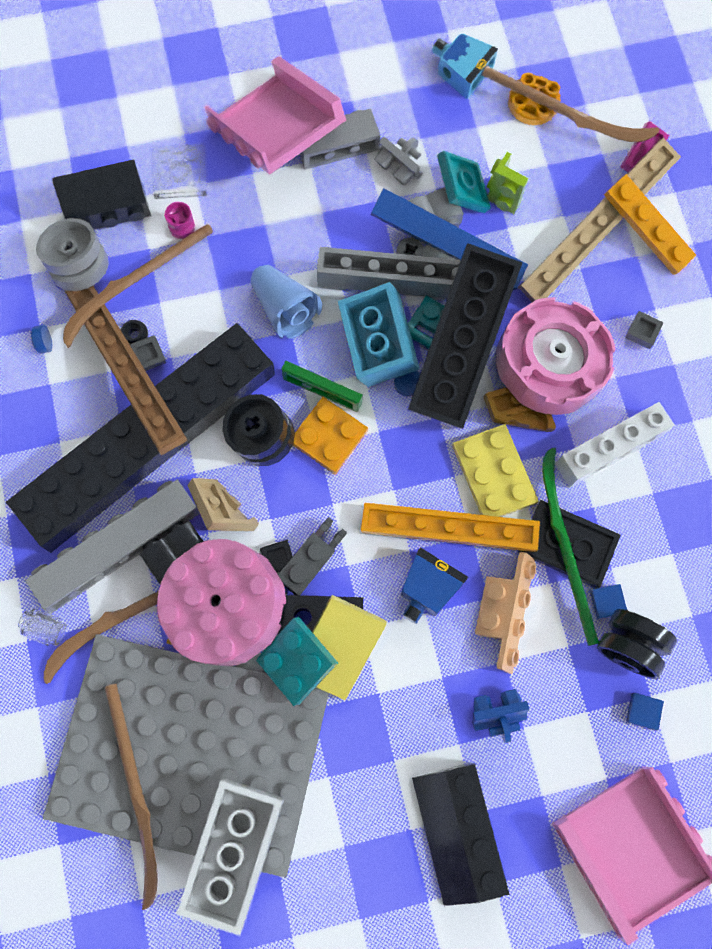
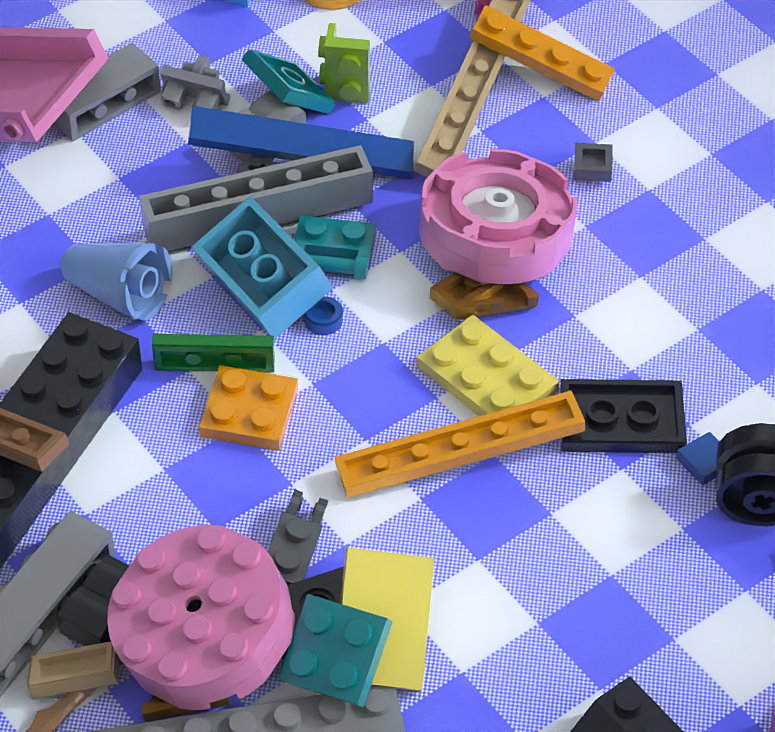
camera: 20 degrees left, 25 degrees down
(133, 593) = (73, 670): none -> tan tile
(218, 507) = (128, 524): tan wing -> none
(258, 430) = (154, 421): black wheel -> none
(429, 585) = (468, 517): torso -> none
(464, 336) = (373, 228): black brick -> none
(501, 719) = (636, 627): blue hips -> none
(504, 610) = (577, 511): light nougat bracket -> none
(558, 526) = (630, 423): green piece -> none
(614, 444) = (620, 287): white brick -> none

